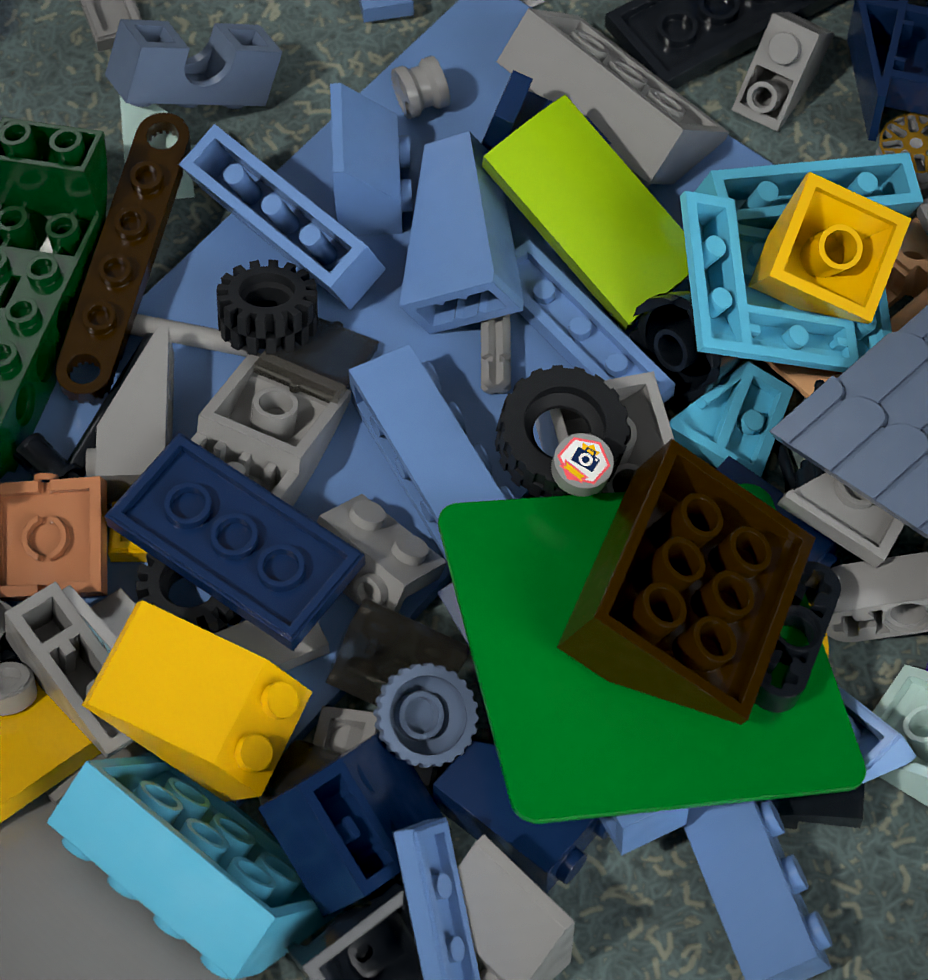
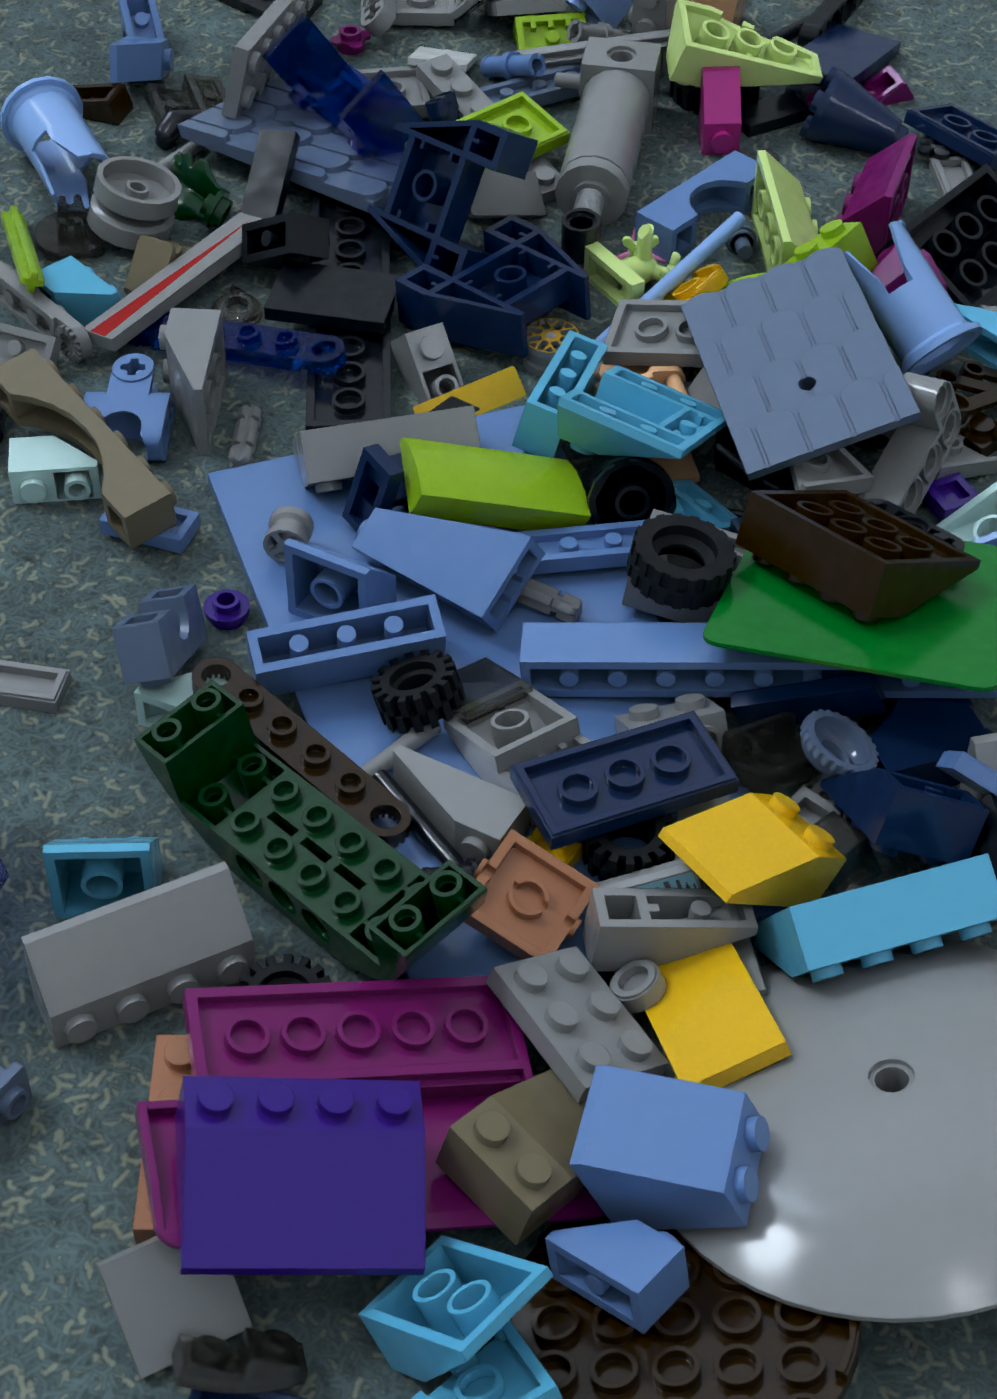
camera: 60 degrees left, 15 degrees down
(308, 109) = (226, 609): none -> dark purple plate
(582, 464) = (728, 549): tile -> none
(771, 129) = (483, 394): none -> yellow sticker
(830, 251) = (644, 373): yellow slope -> none

